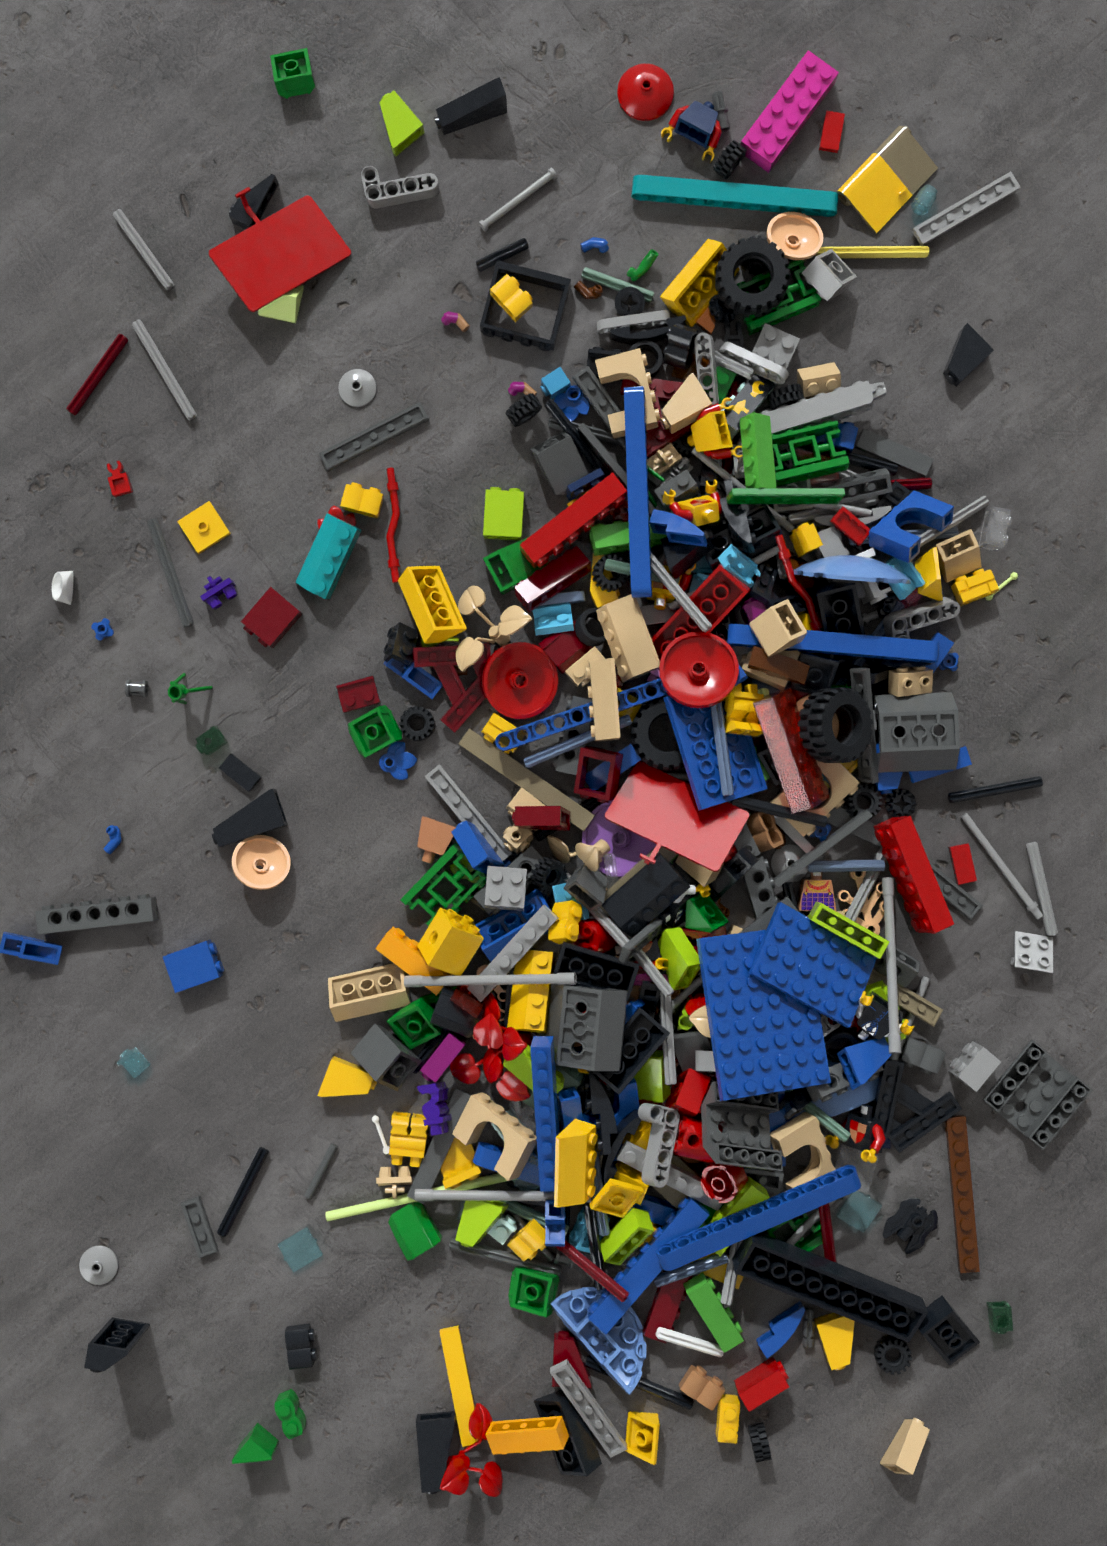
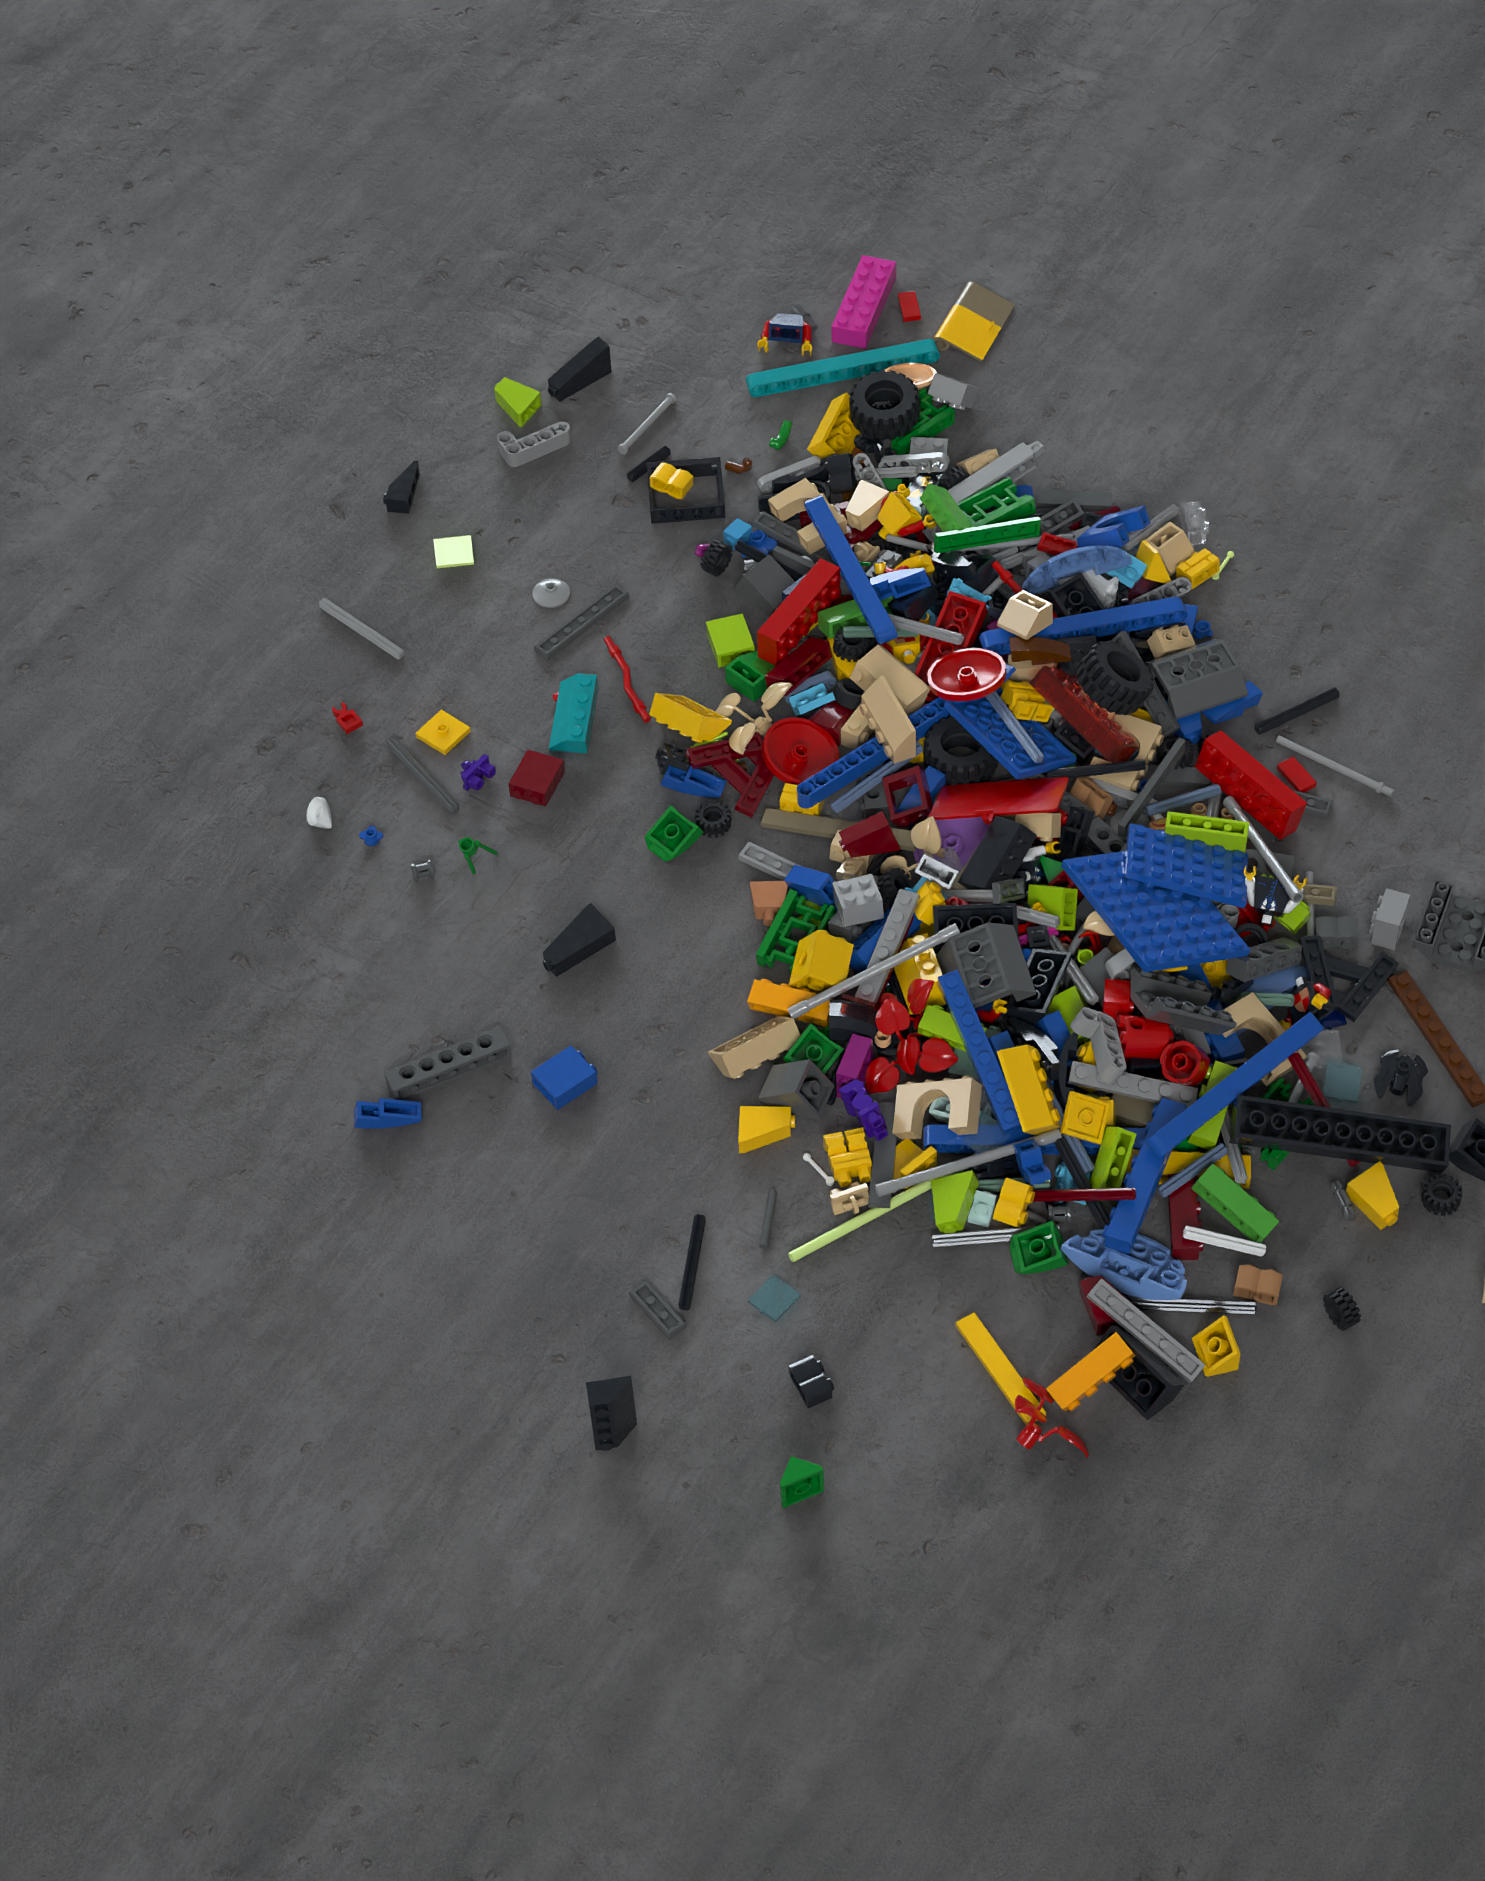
camera: 15 degrees left, 35 degrees down
(97, 374) = (297, 649): dark red axle -> none
(105, 1259) = (562, 1388): light grey dish -> none
(115, 838) = (442, 998): blue arm -> none
(133, 1062) = (531, 1181): clear light blue bracket -> none
(143, 249) = (310, 550): light grey axle -> none
(217, 741) = (513, 889): clear green brick -> none
(240, 772) = (551, 909): black tile -> none
(265, 852) = (602, 967): light nougat dish -> none
(278, 252) = (441, 510): red piece -> none
(290, 1414) = (826, 1446): green brick -> none
(292, 73) = (407, 393): green slope -> none
(358, 694) = (643, 815): dark red plate -> none
(362, 500) = (591, 664): yellow brick -> none
(400, 761) = (705, 855): blue plate -> none
(414, 1230) = (888, 1239): green slope -> none
(434, 1443) = (995, 1428): black slope -> none
(451, 317) = (625, 517): arm -> none
(595, 243) = (729, 433): blue arm -> none
(613, 283) = (764, 455): sand green axle -> none
(623, 295) = (773, 458): black gear -> none
(643, 102) = (730, 325): red dish -> none
(728, 1419) = (1298, 1302): yellow brick -> none
(729, 159) = (827, 342): black tyre -> none
(762, 1383) = (1316, 1252): red brick -> none
(781, 1329) = (1313, 1208): blue slope -> none
(805, 539) = (1021, 564): yellow brick -> none
(863, 1060) = (1275, 934): blue slope -> none
(879, 251) = (996, 369): light yellow axle -> none
(924, 200) = (1013, 326): clear light blue brick -> none
(966, 209) = (1053, 322): light grey plate -> none
(966, 355) = (1105, 415): black slope -> none
(1033, 952) = (1401, 821): hinge -> none
(1042, 888) = (1382, 771): light grey axle -> none

